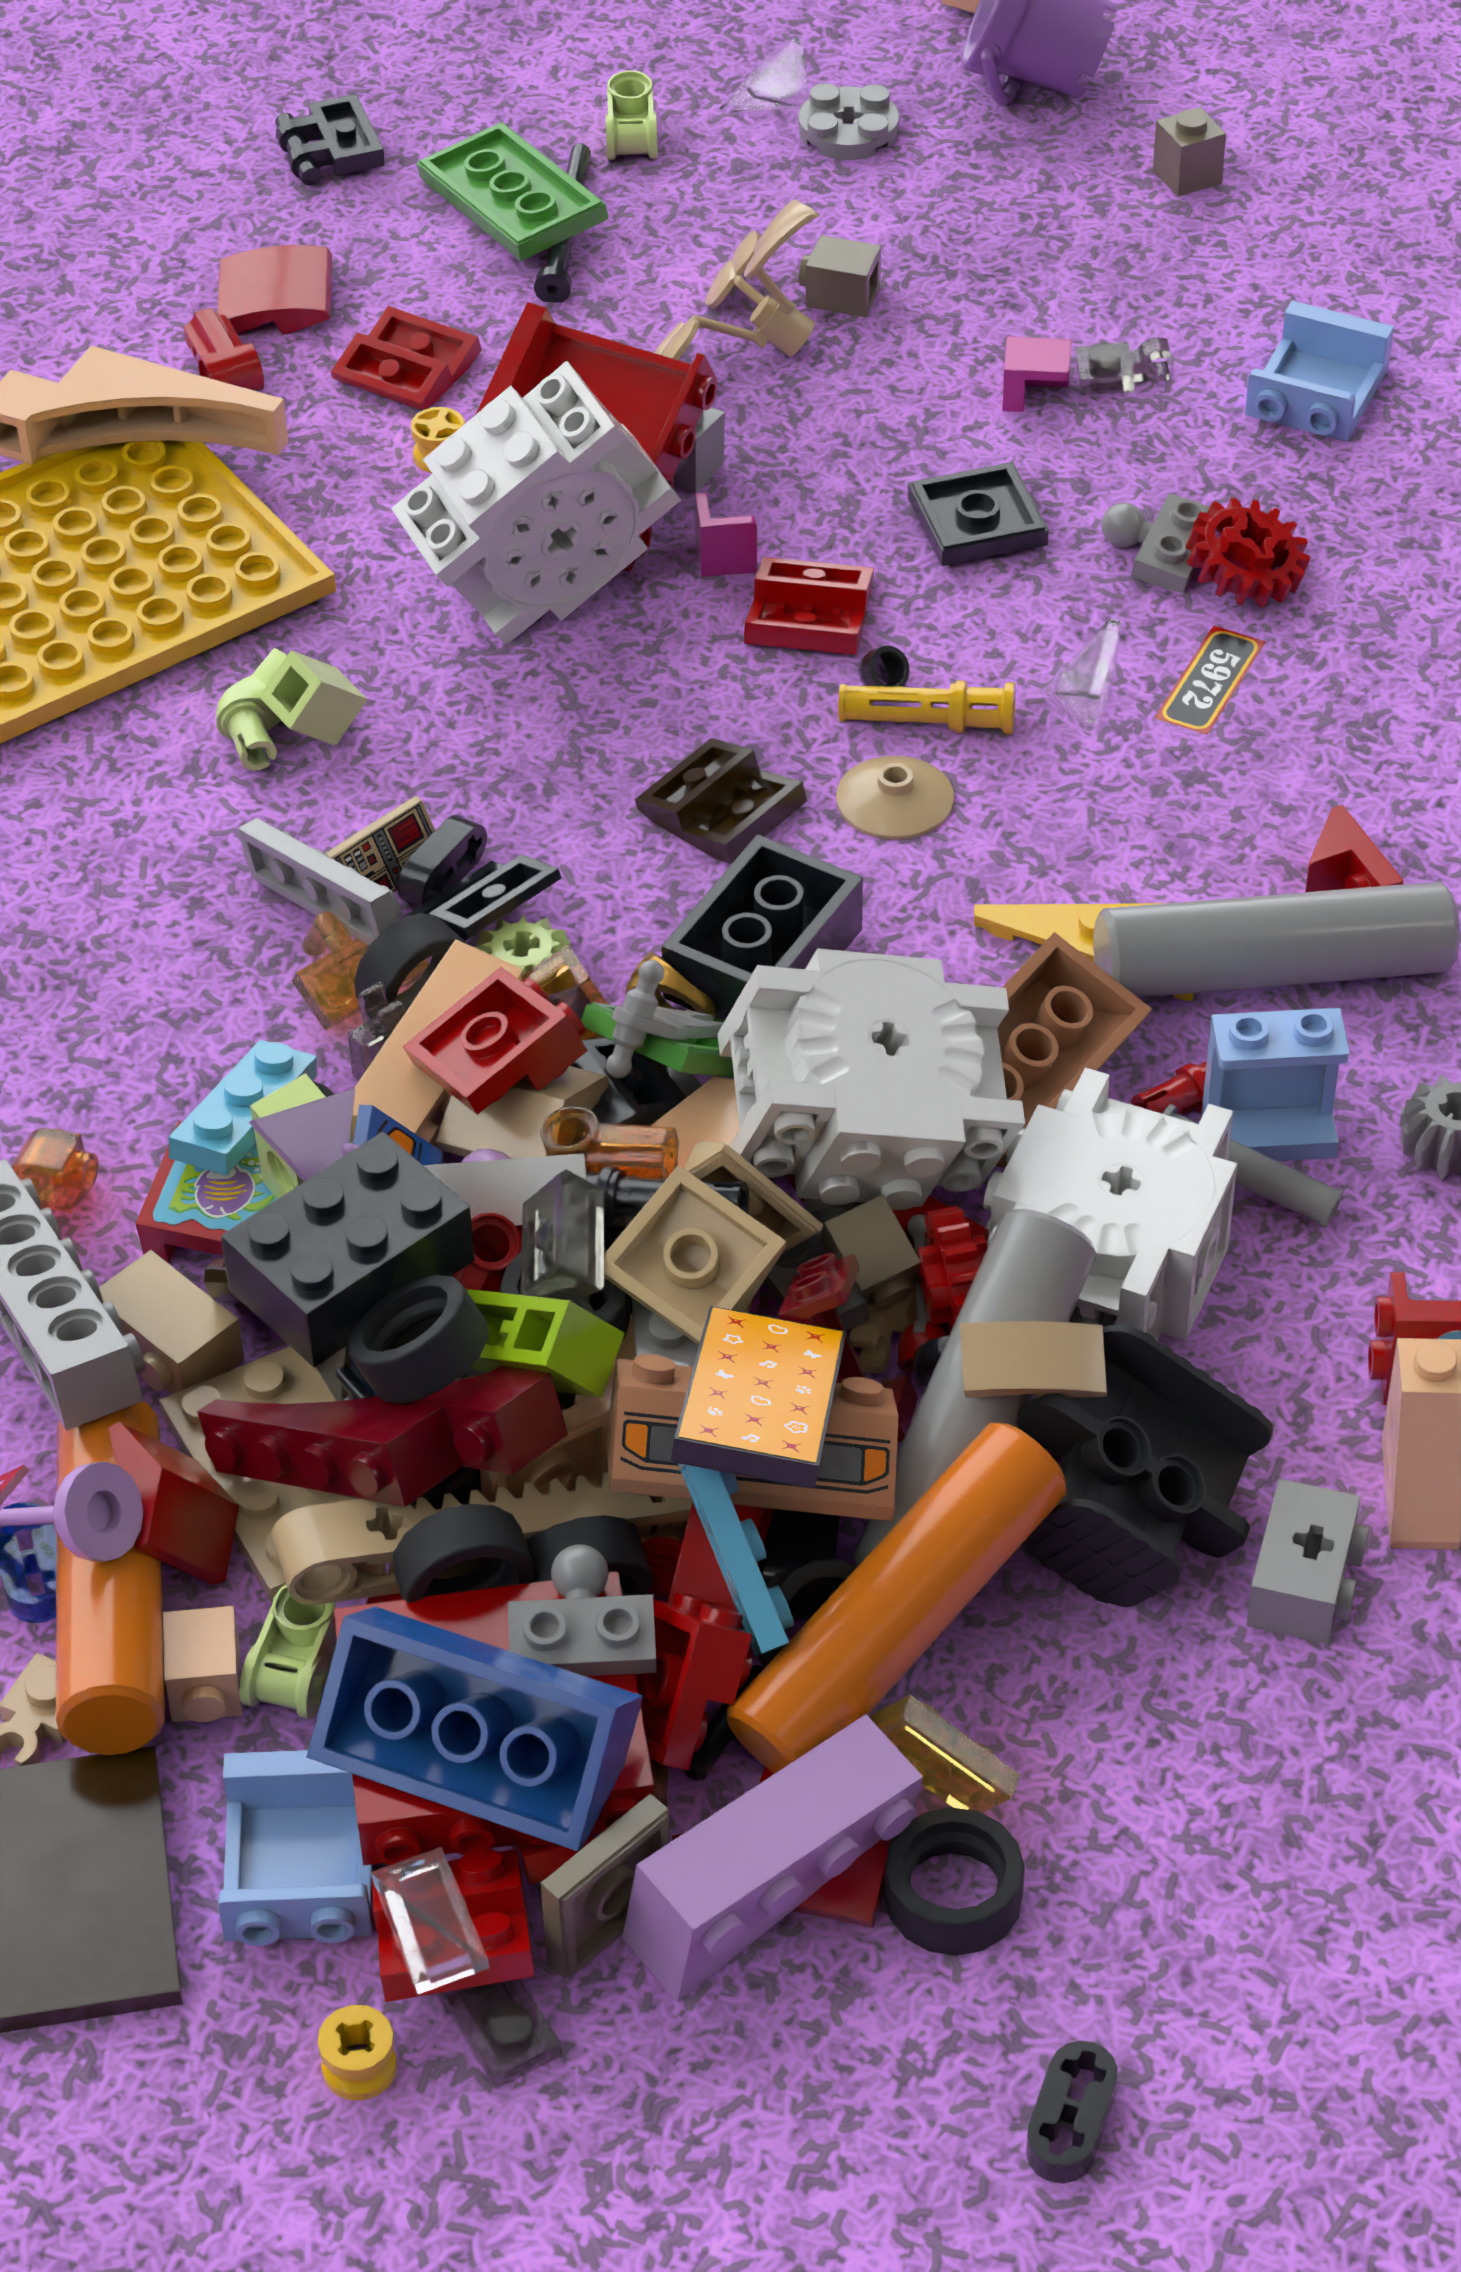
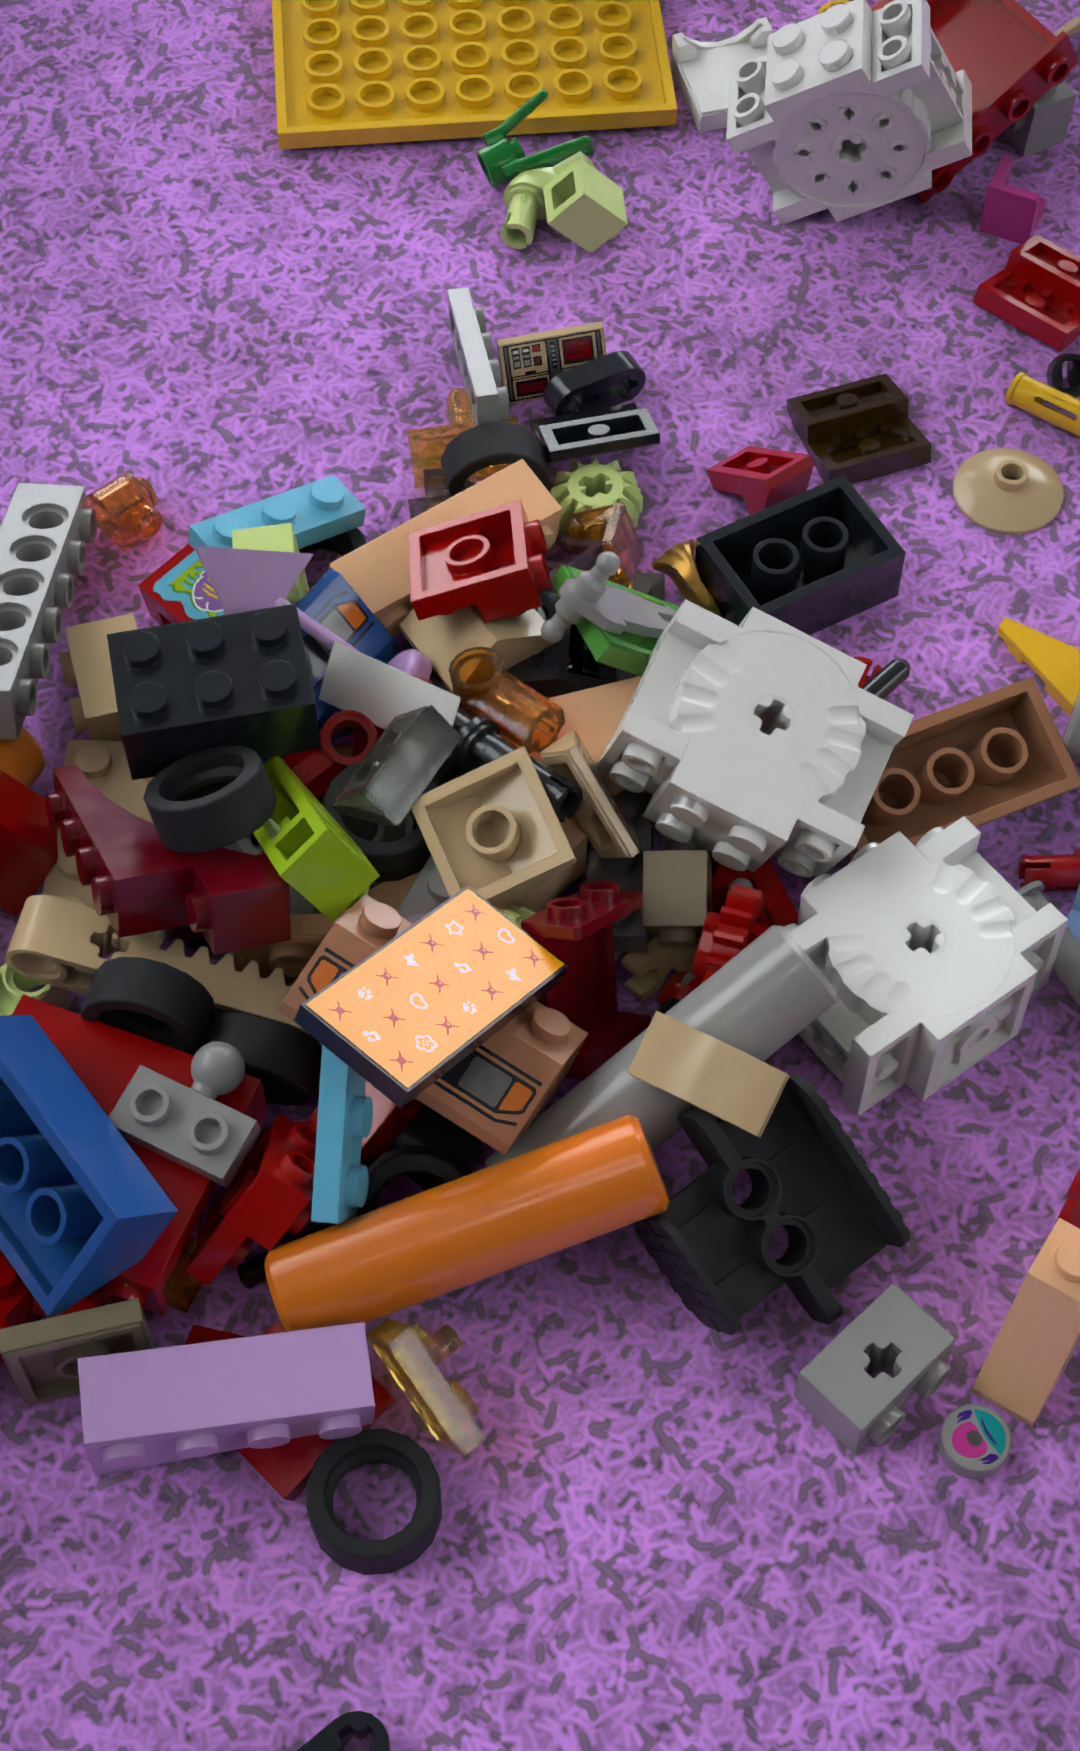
camera: 30 degrees right, 10 degrees up
(198, 685) = (506, 159): none -> green plant
(354, 526) = (705, 70): none -> white piece
(669, 872) = (762, 476): none -> red slope
(1422, 1581) = (974, 1441): none -> tile

